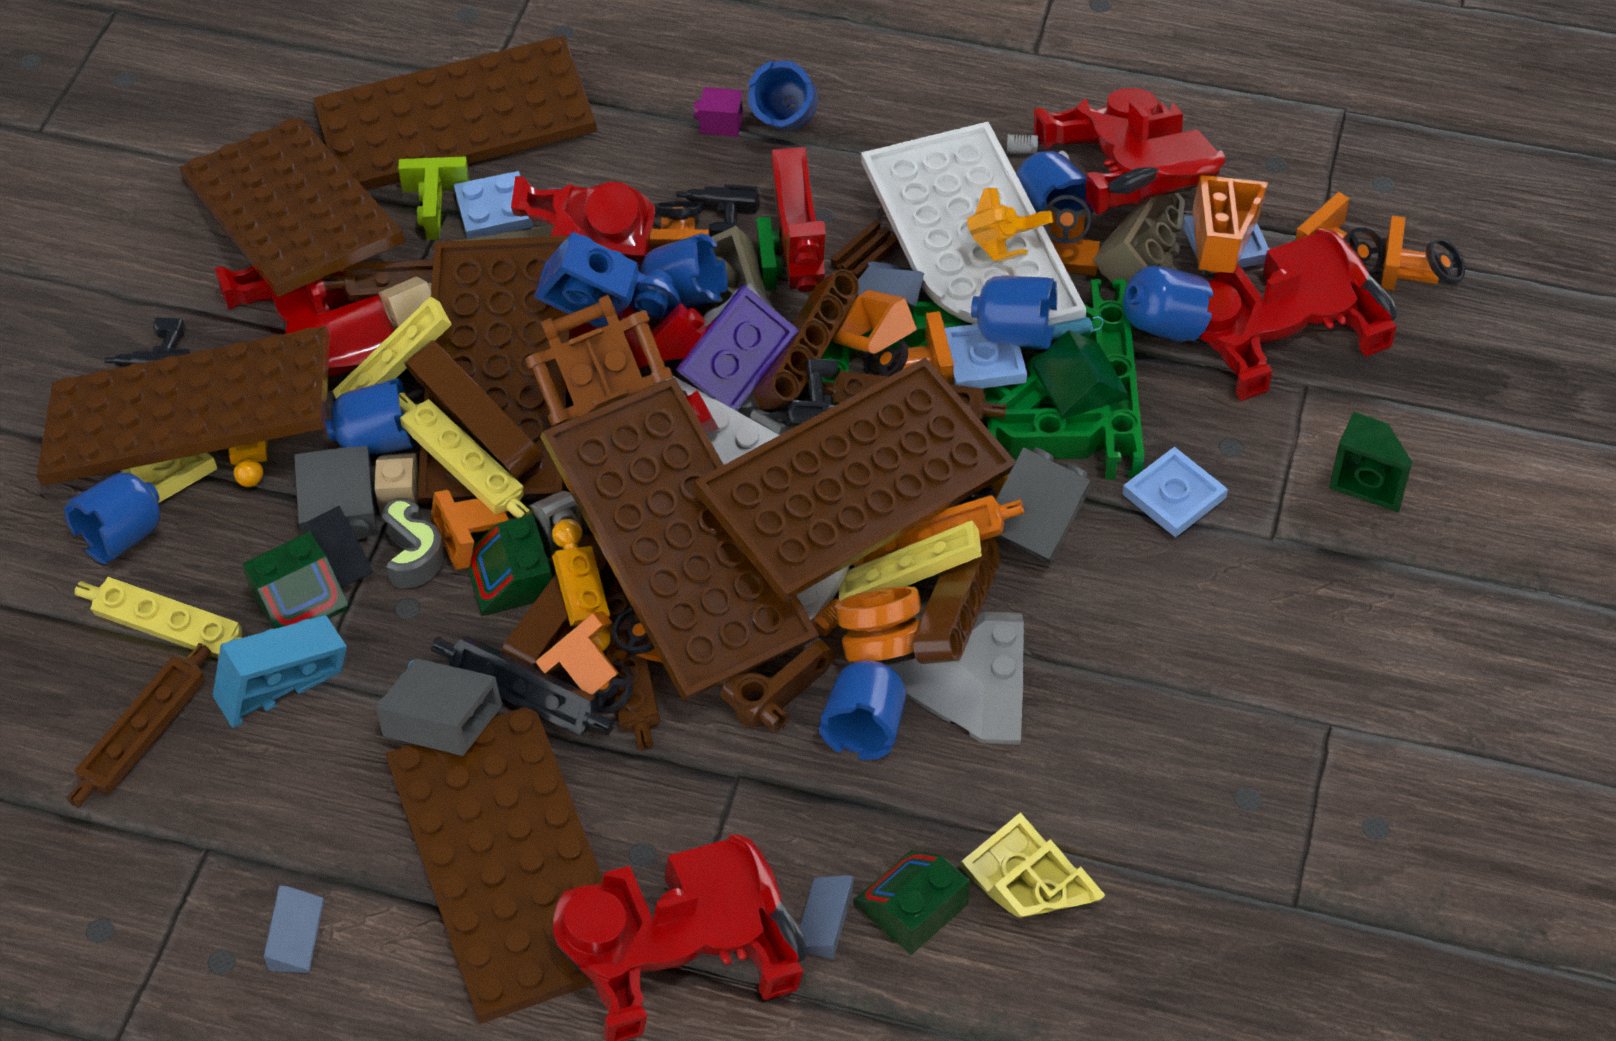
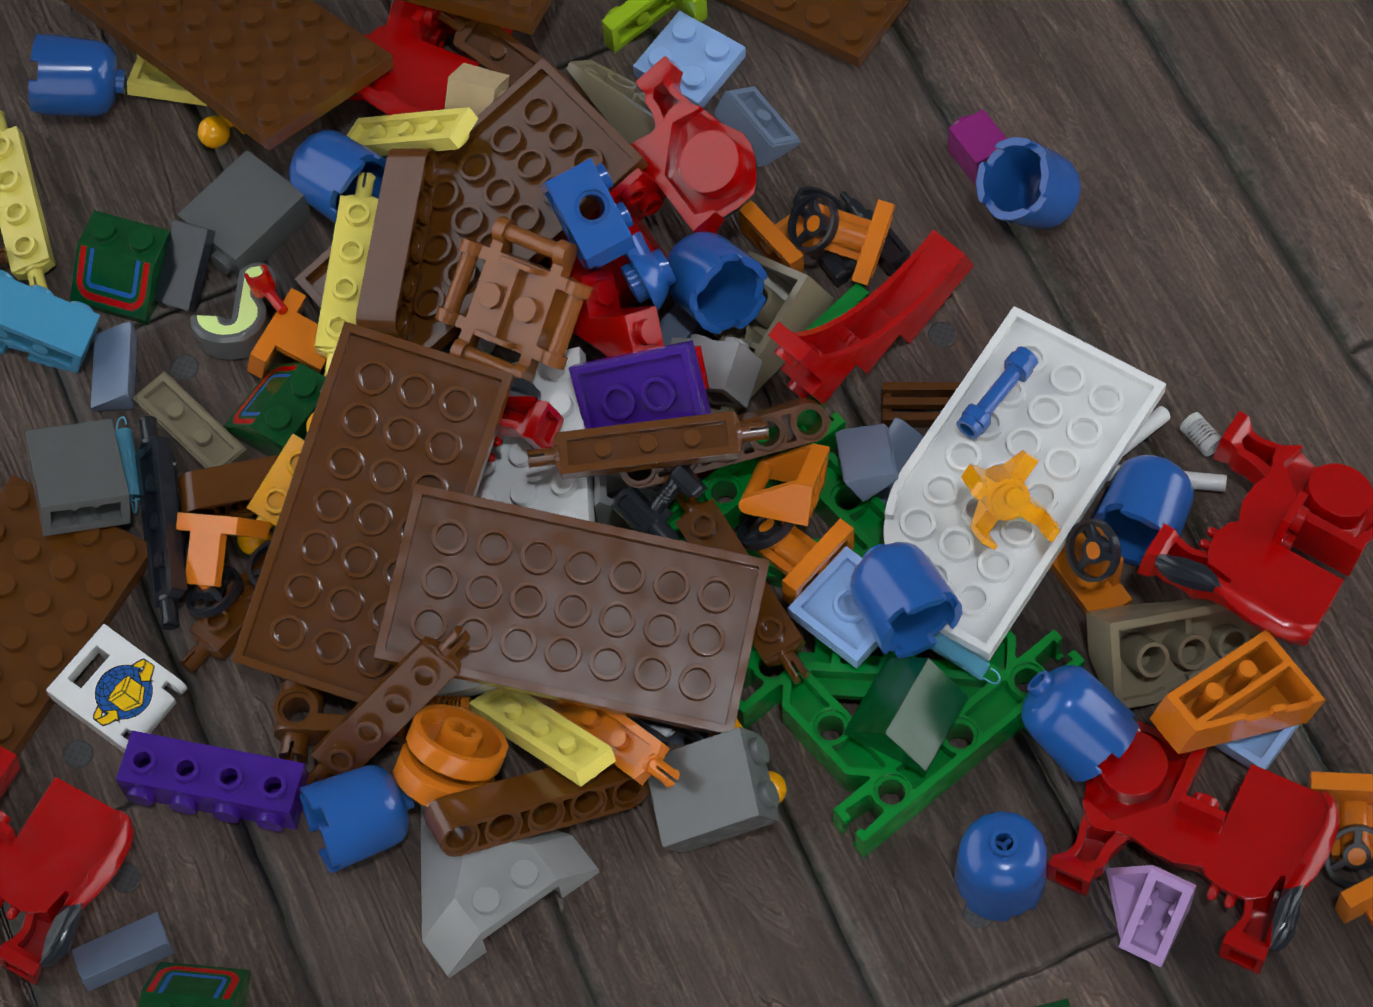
camera: 55 degrees right, 10 degrees up
(370, 643) = (114, 368): none -> sand blue slope
(396, 478) = (295, 245): tan slope -> none
(415, 507) = (265, 287): none -> red hand
(484, 625) = (189, 424): none -> dark tan tile
(631, 793) = (121, 694): none -> white container
(721, 200) = (843, 233): none -> orange piece
(751, 778) = (212, 781): none -> dark purple brick
(783, 361) = (648, 445): none -> reddish brown plate
(820, 625) = (389, 706): none -> reddish brown plate
(923, 209) = (1017, 367): none -> blue bar
(1174, 491) = (862, 900): light blue plate -> none
(1220, 405) = (1000, 880): none -> blue cylinder
(1309, 359) = (1149, 909): none -> lavender slope

